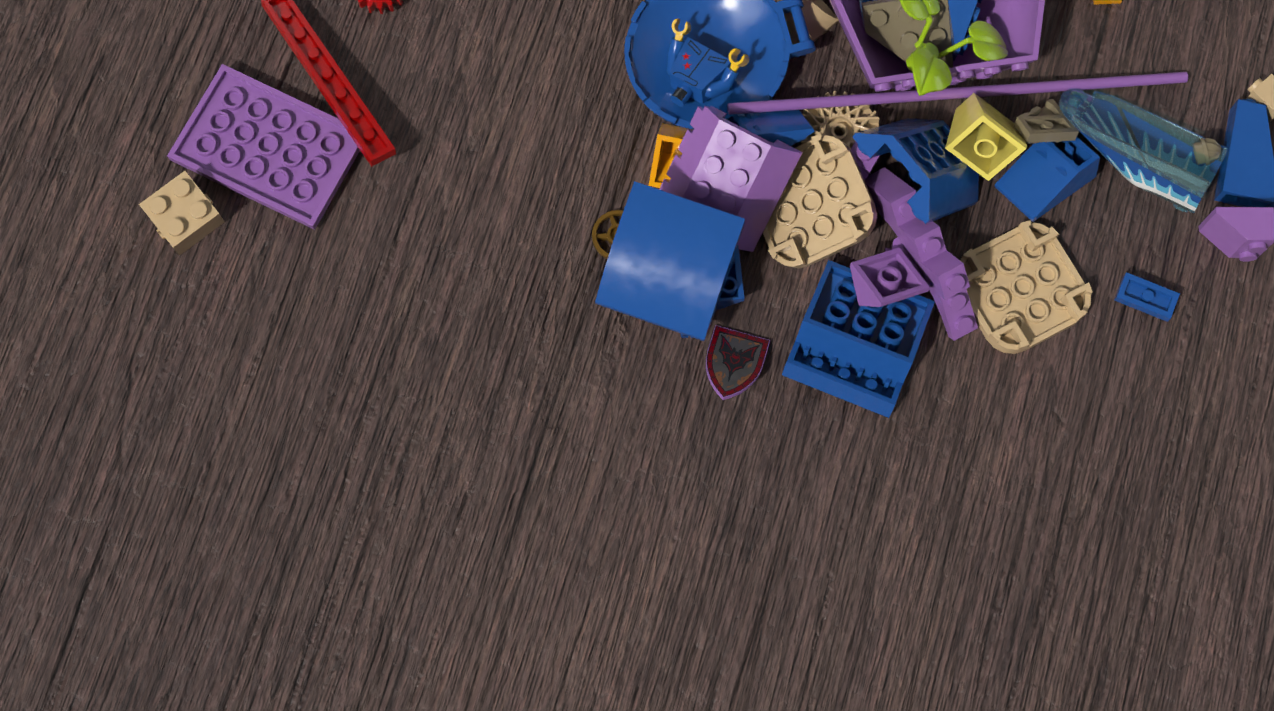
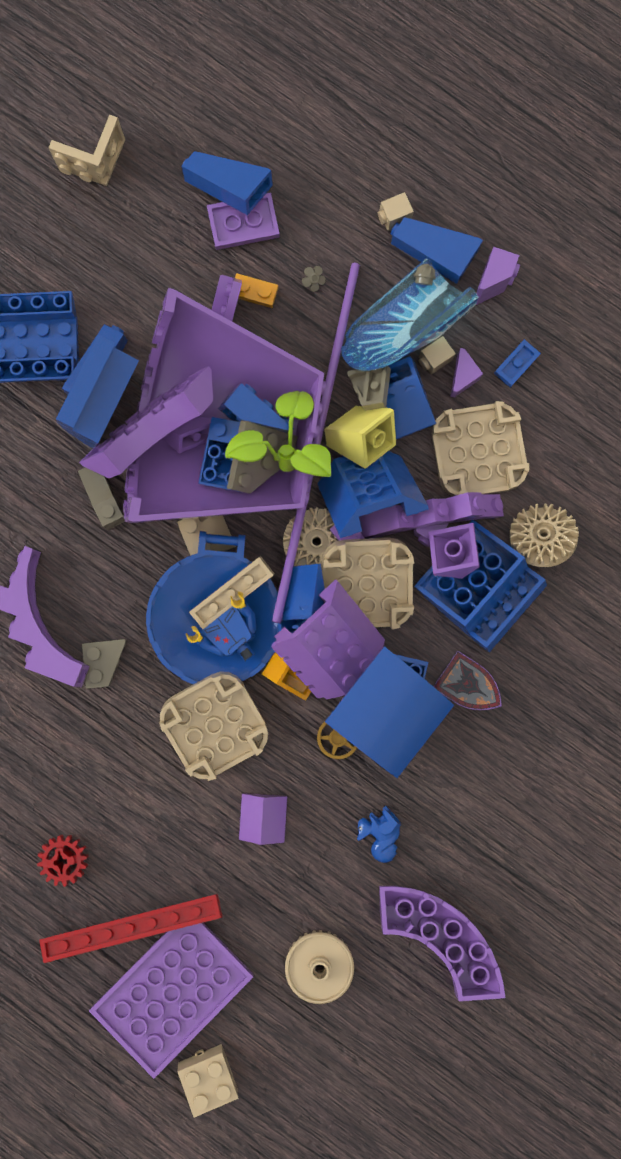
camera: 75 degrees left, 10 degrees up
(348, 316) = (324, 984): none -> tan wheel
(429, 426) = (446, 933): none -> medium lavender brick
(497, 183) = (263, 818): none -> medium lavender slope
(528, 319) = (385, 830): none -> blue animal
(585, 90) = (213, 725): none -> tan tile
(762, 62) = (219, 601): none -> tan plate
(947, 389) = (544, 535): none -> tan wheel
(1106, 238) = (465, 373): none -> medium lavender slope
(1115, 199) = (436, 355): none -> tan brick
(1148, 34) = (313, 278): none -> dark tan plant

